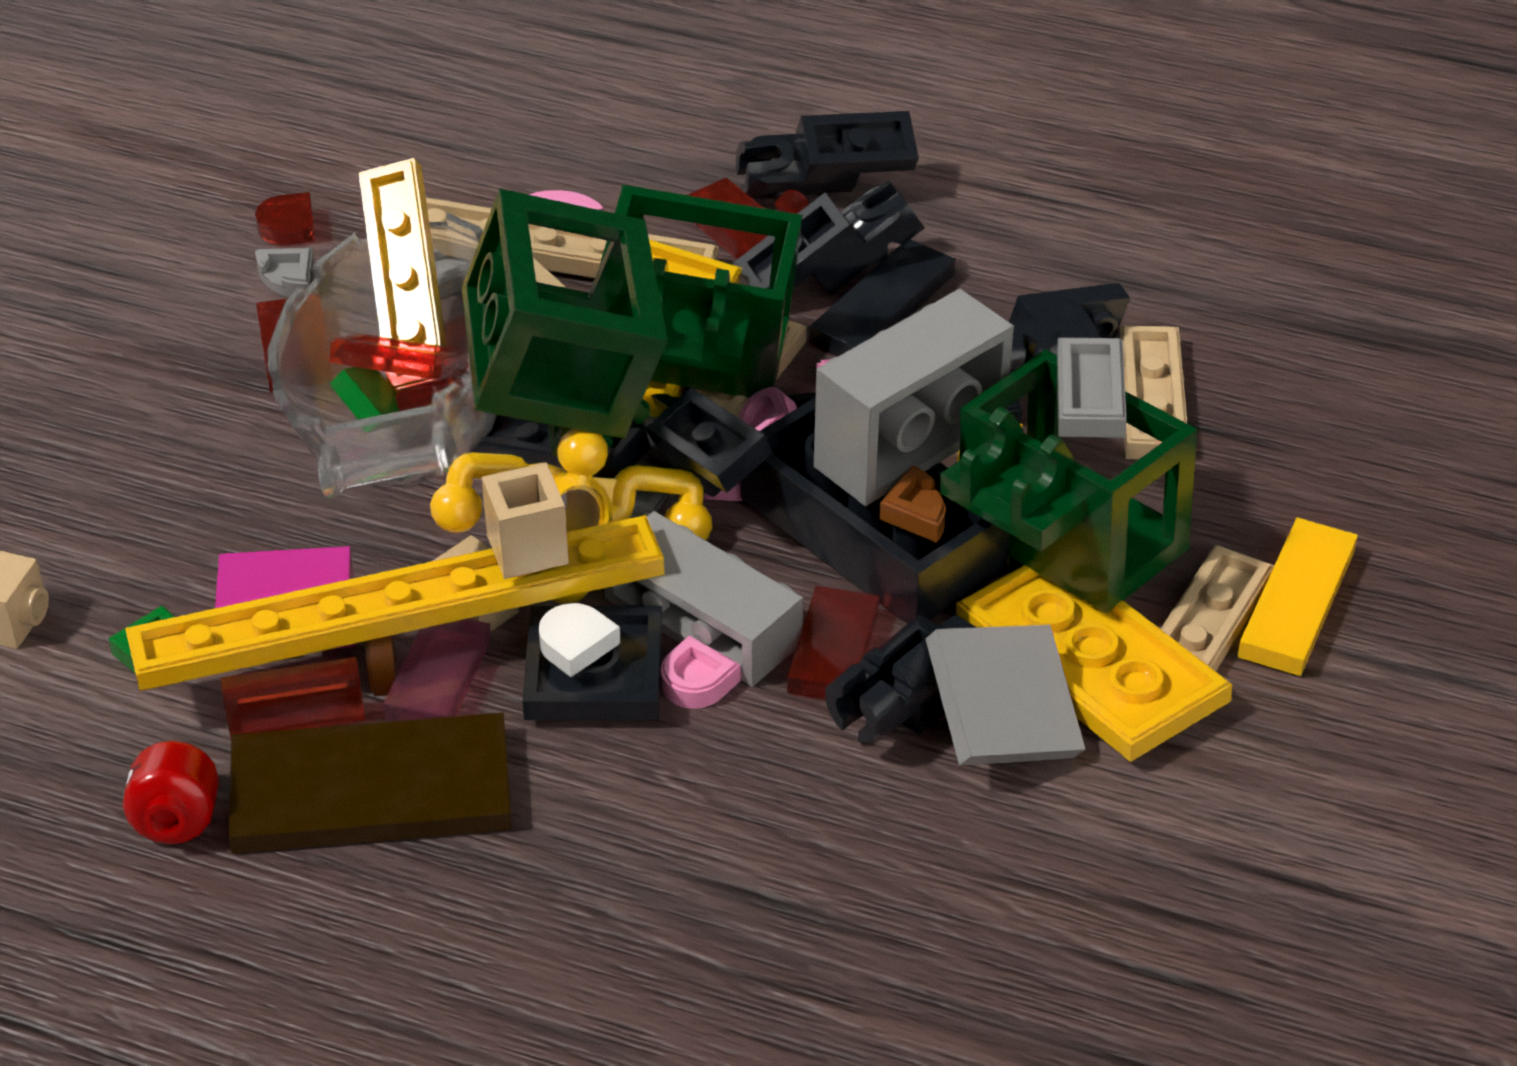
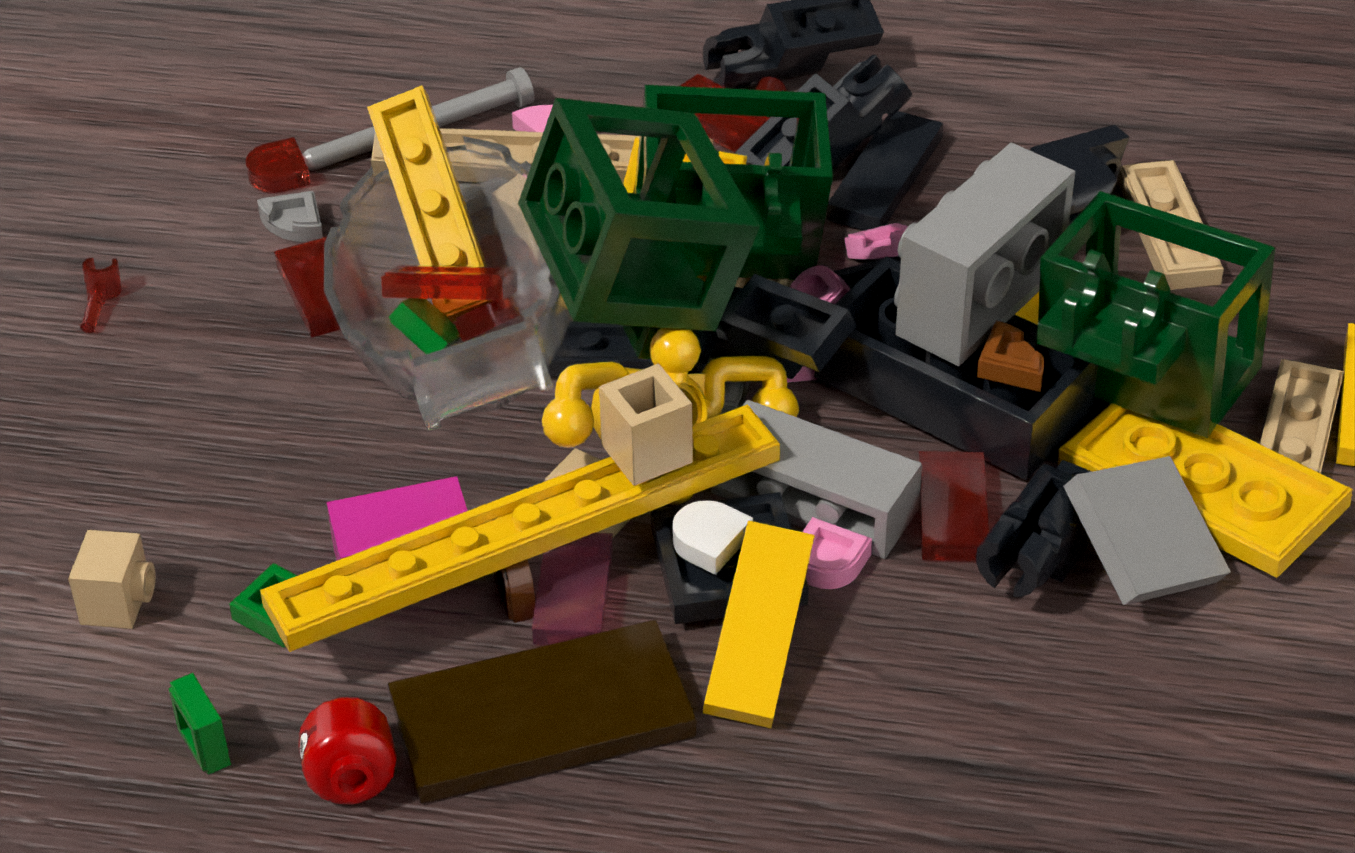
camera: 10 degrees left, 0 degrees up
(43, 747) = (199, 724): none -> green tile
(84, 315) = (100, 286): none -> clear red hand
(294, 697) = (441, 636): clear red tile -> none
(451, 189) = (515, 89): none -> light grey bar
(596, 731) = (758, 624): none -> yellow tile
(1091, 387) = (1162, 221): light grey tile -> none

